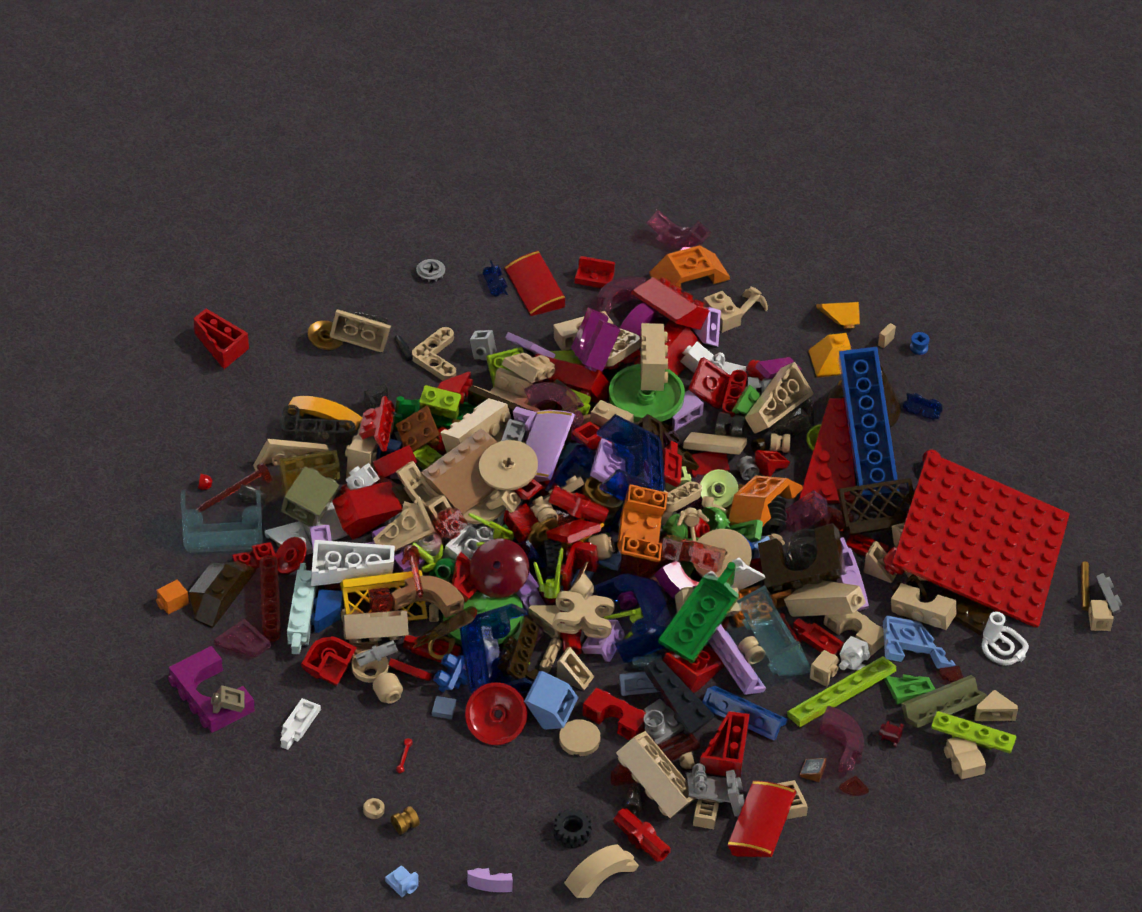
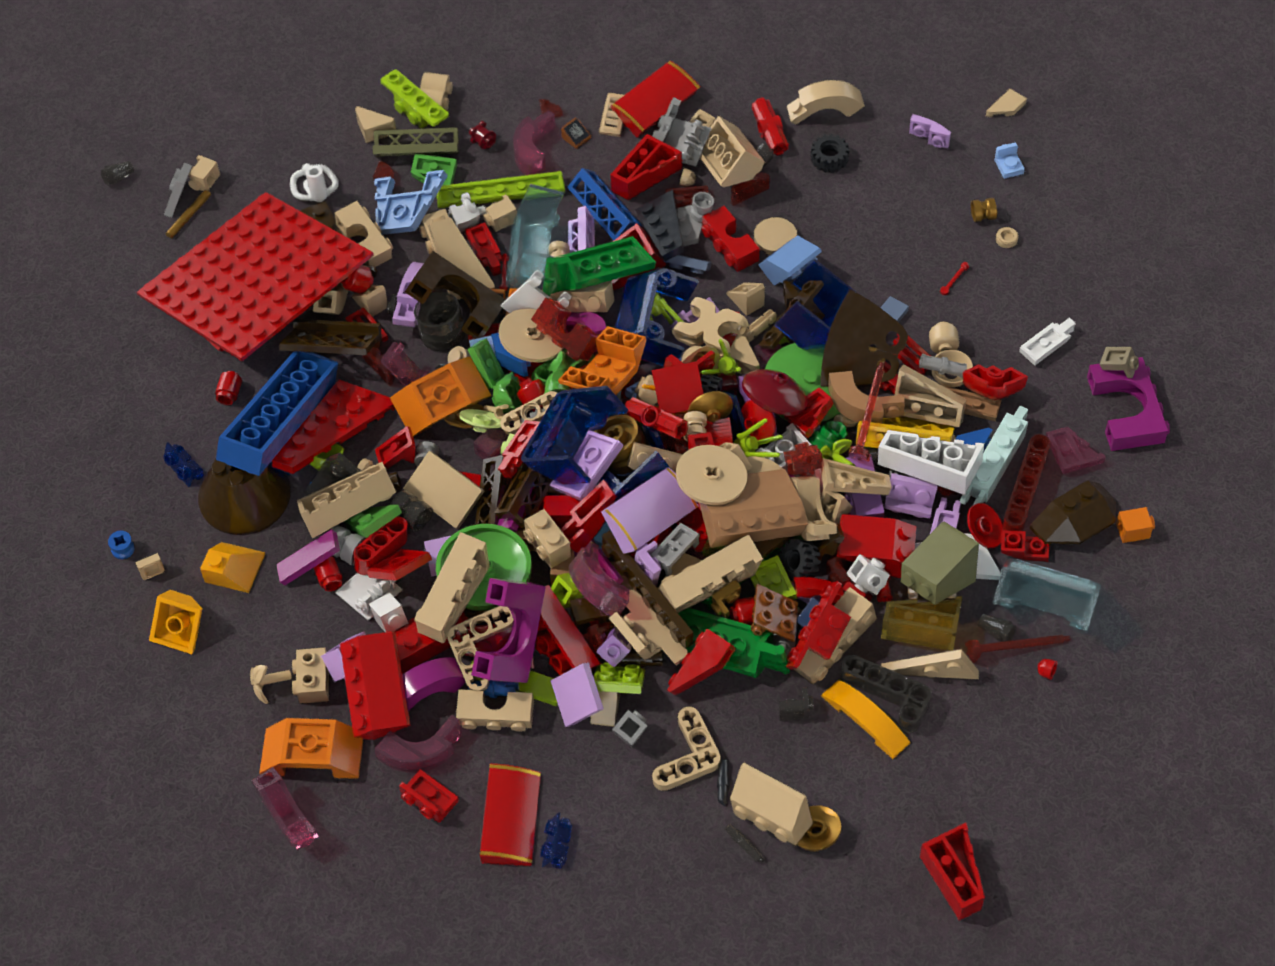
camera: 150 degrees left, 10 degrees up
(380, 599) = (915, 410): clear red bracket -> none
(425, 266) = (627, 883): light grey gear -> none
(440, 402) = (735, 630): lime bracket -> none
(482, 709) = (850, 267): red dish -> none
(530, 368) = (604, 634): tan plate -> none
(691, 519) = (541, 377): tan plant -> none

